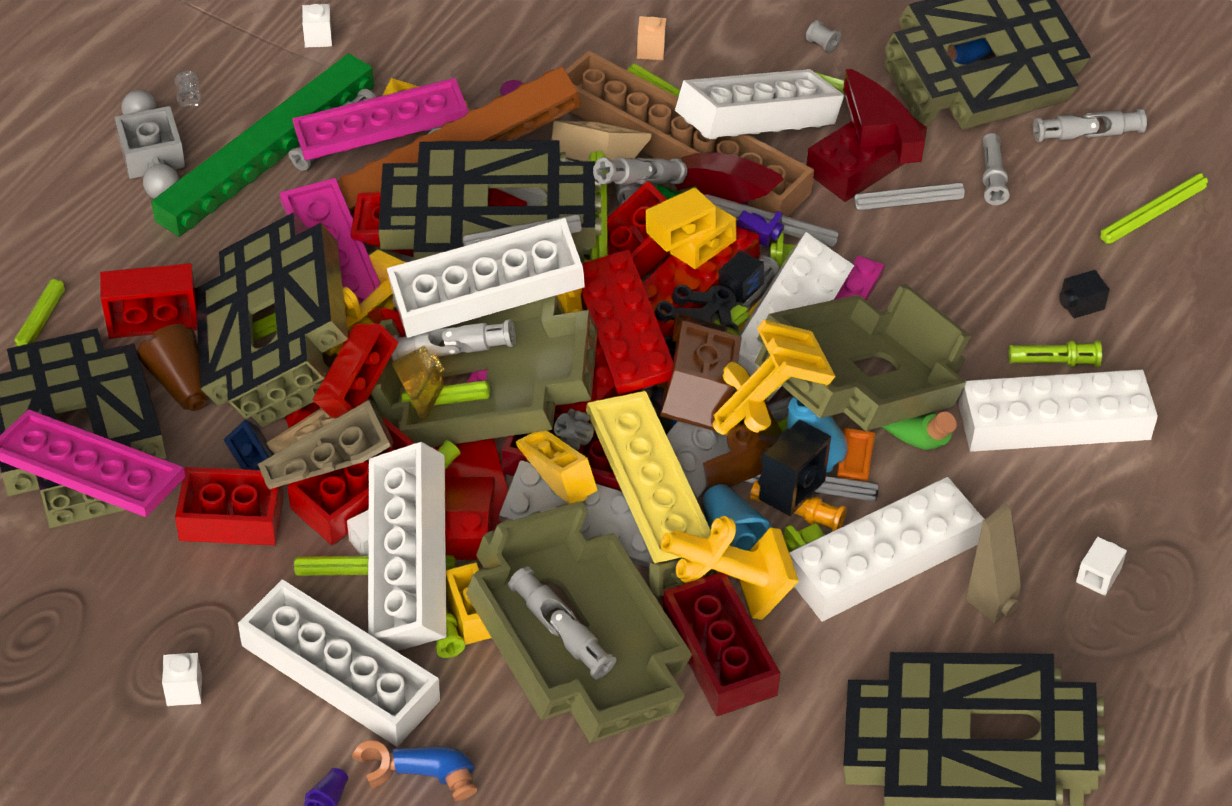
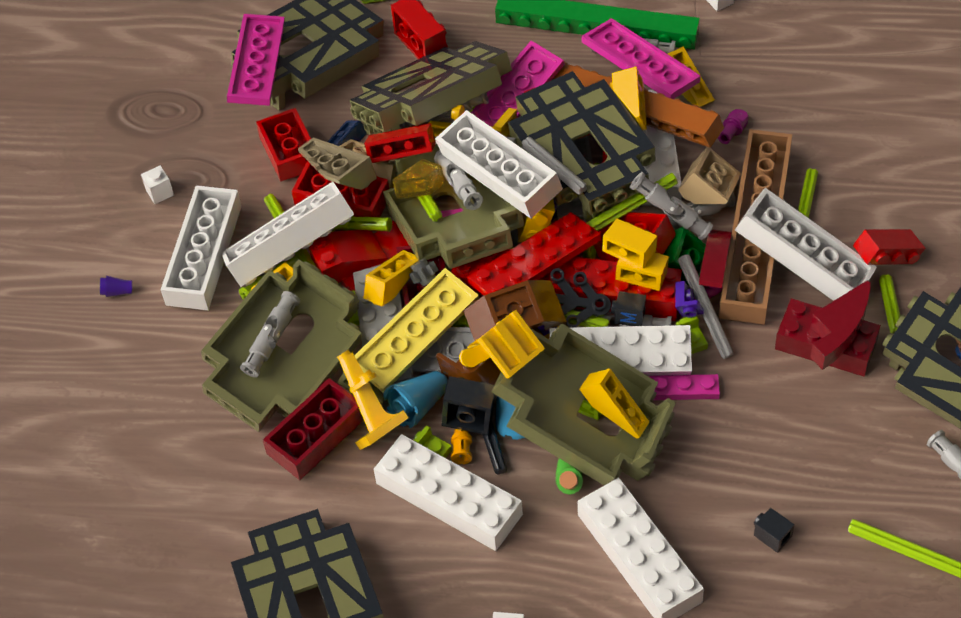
camera: 70 degrees right, 5 degrees up
(175, 364) = (379, 62): reddish brown cone -> none
(442, 762) = (158, 329): piece -> none
(452, 125) = (629, 88): none -> yellow slope
(651, 38) = (848, 167): light nougat brick -> none
(792, 49) = (889, 246): none -> red brick
(823, 36) = (934, 267): light grey bush -> none
(858, 456) = (522, 450): orange tile -> none
(870, 334) = (612, 400): none -> yellow slope
(909, 196) = (804, 384): light grey axle -> none
(995, 176) = (862, 429): light grey pin -> none
(996, 568) = (451, 560): dark tan wedge -> none
(1018, 353) = (705, 541): lime pin -> none

